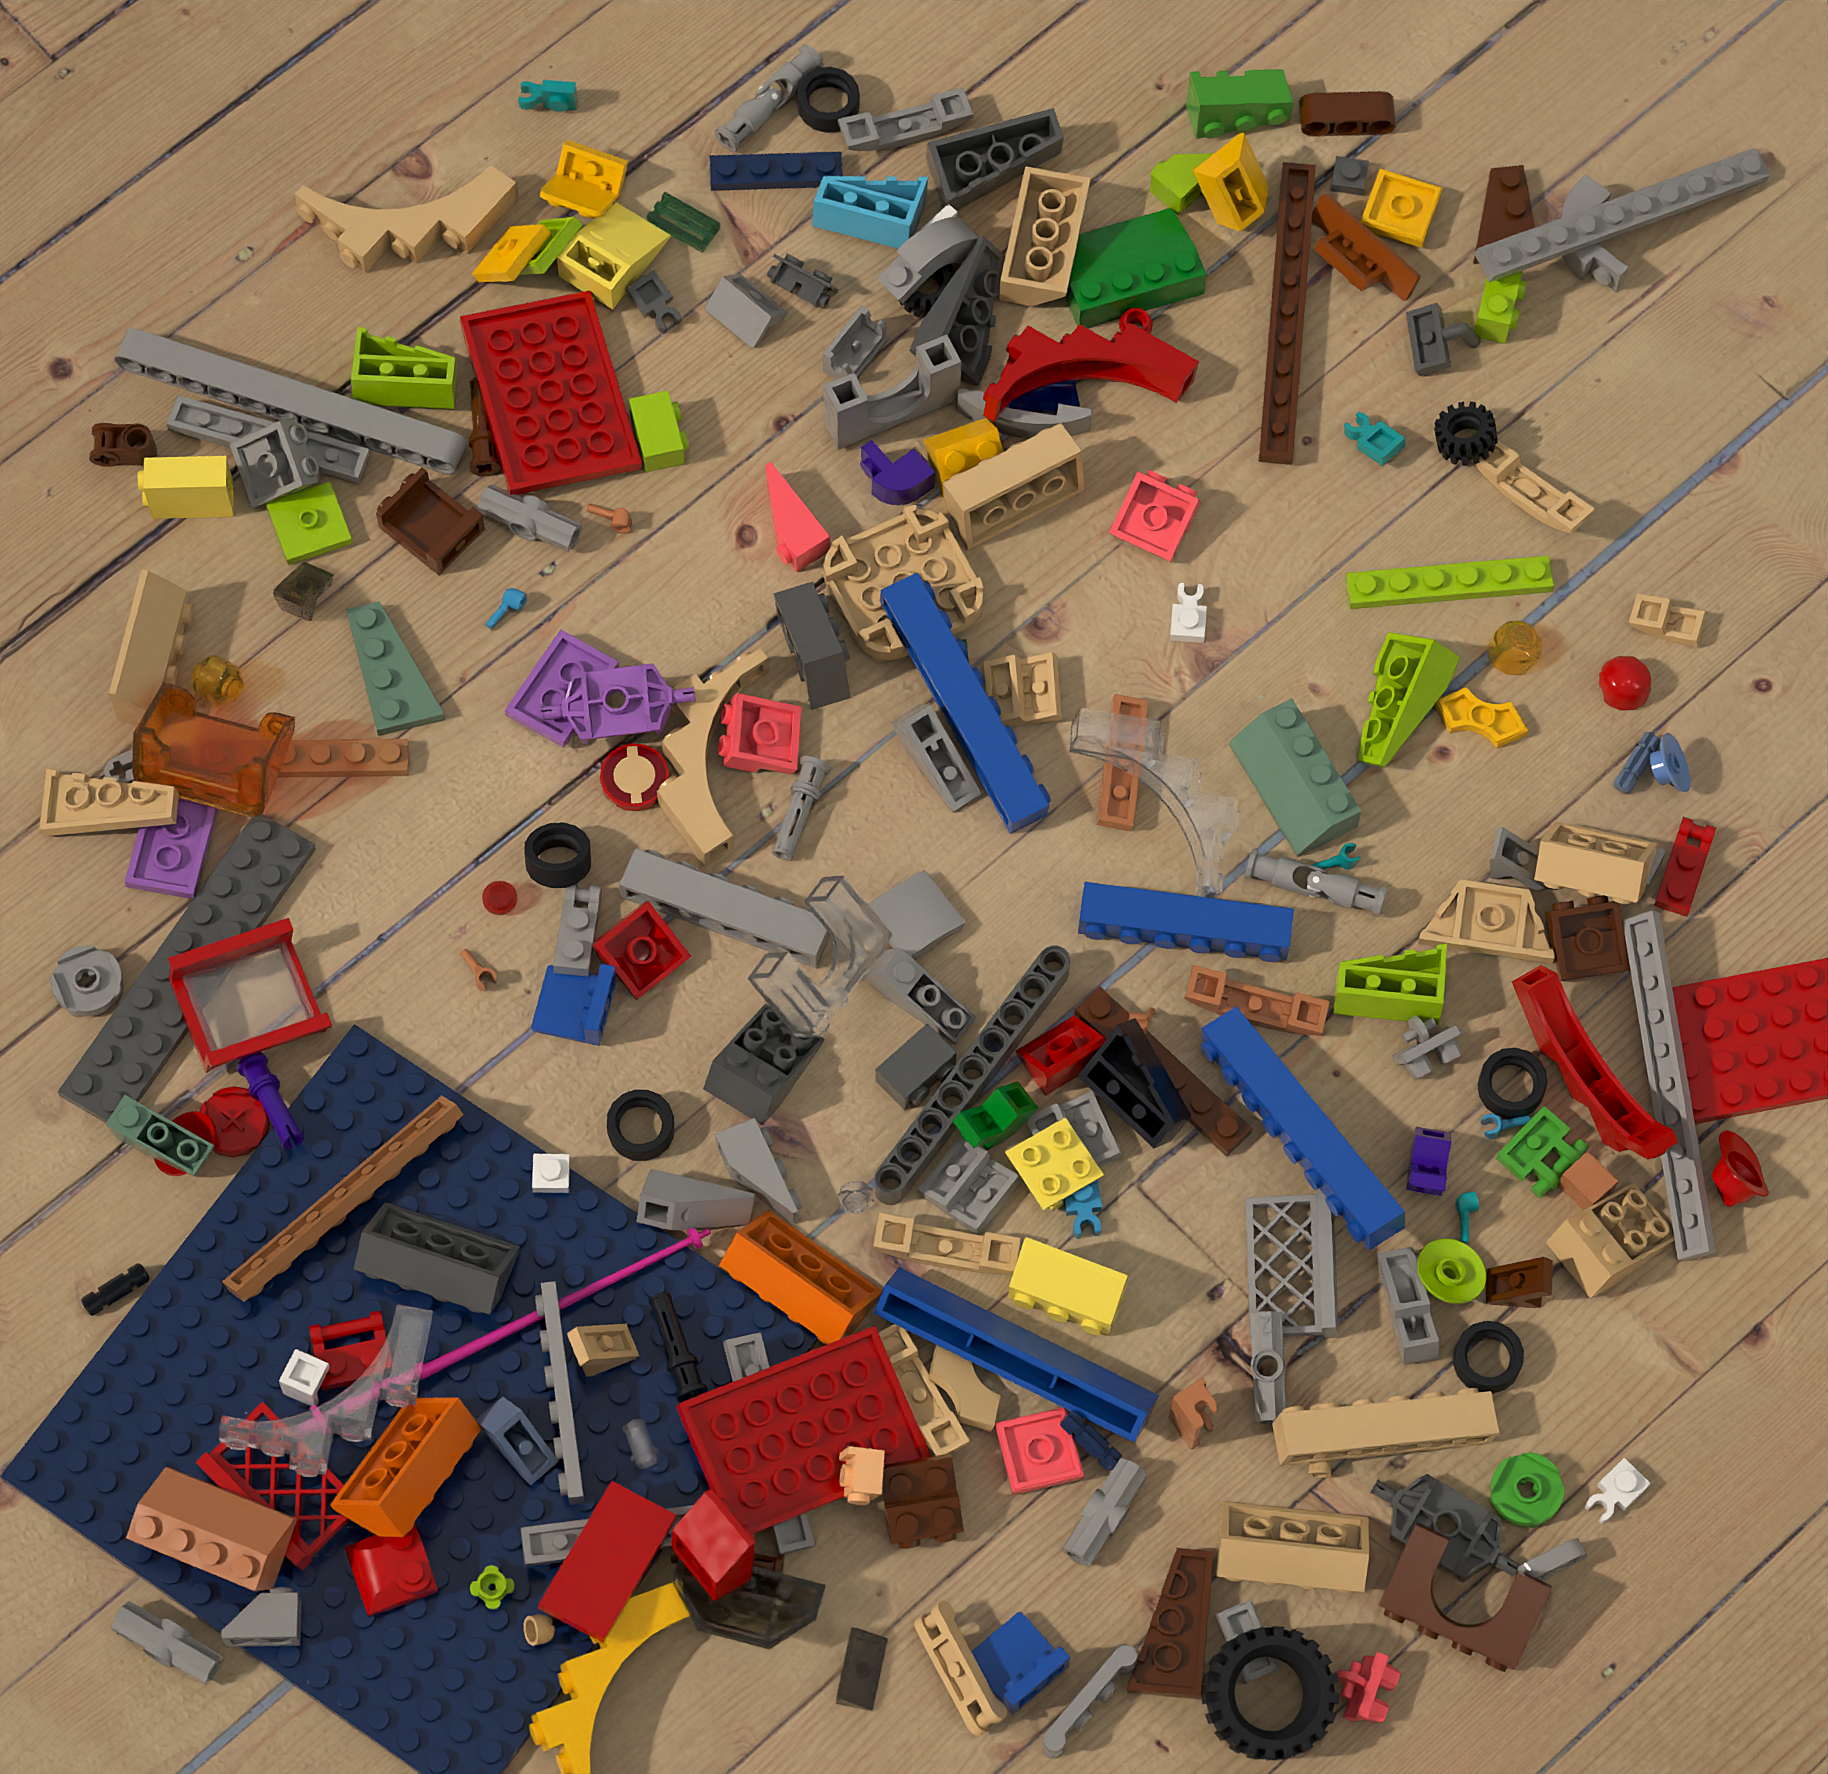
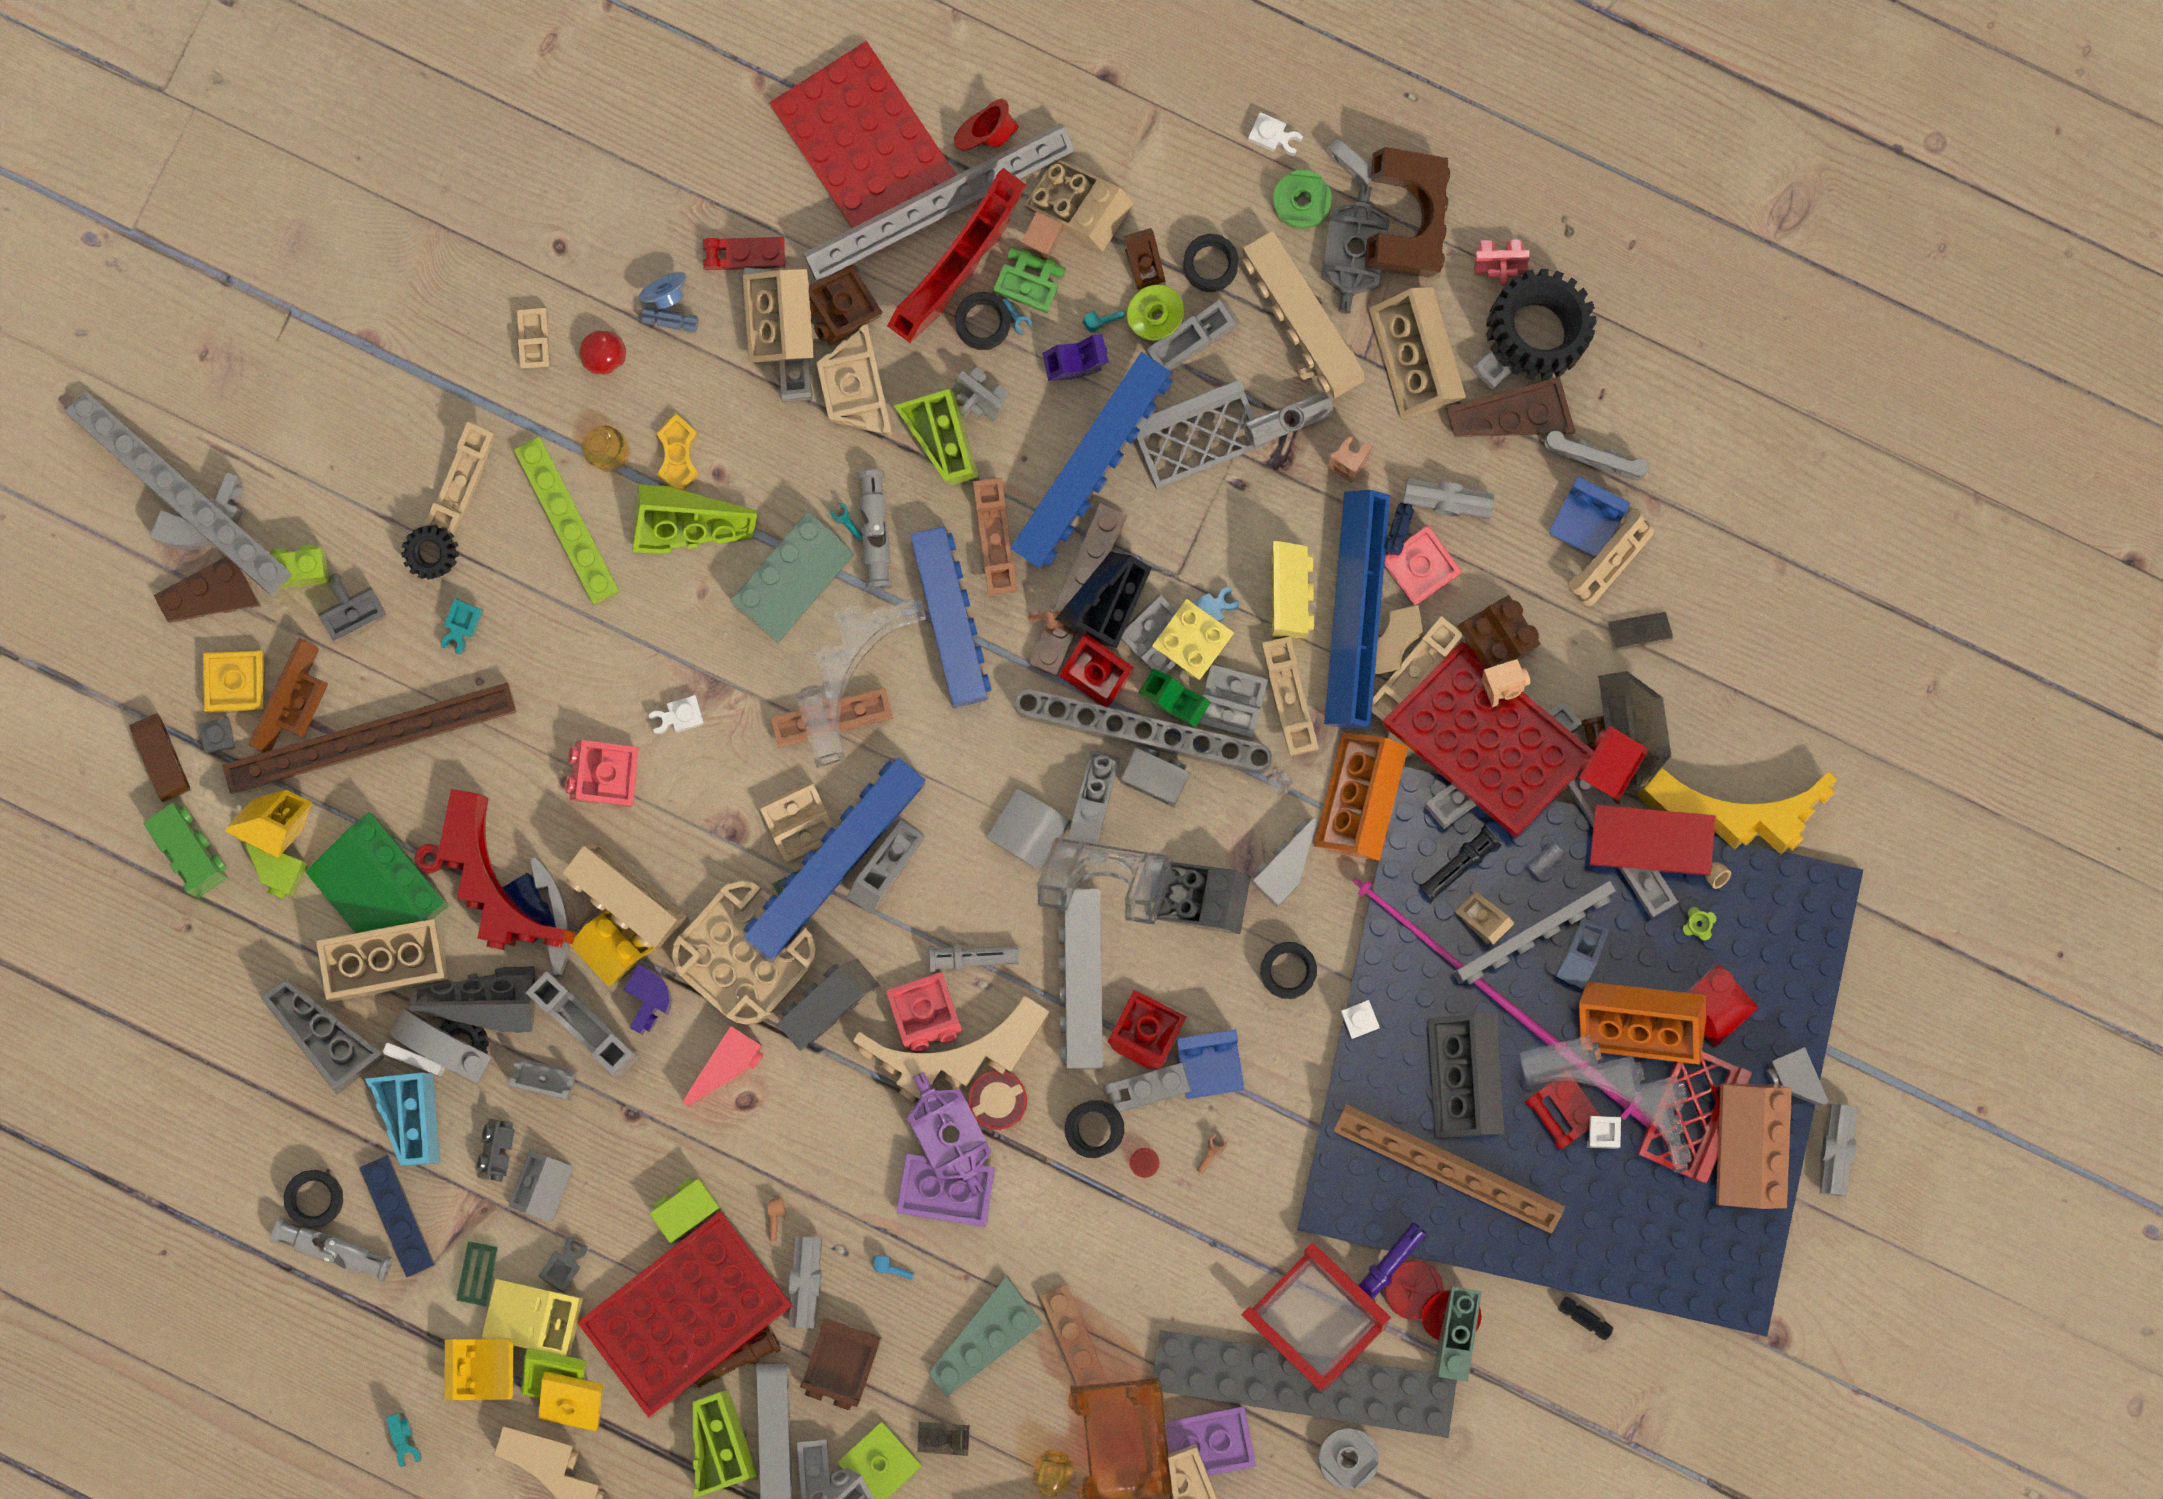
camera: 110 degrees left, 15 degrees up
(685, 1203) = (1340, 909): light grey slope -> none
(906, 125) = (310, 1123): light grey slope -> none

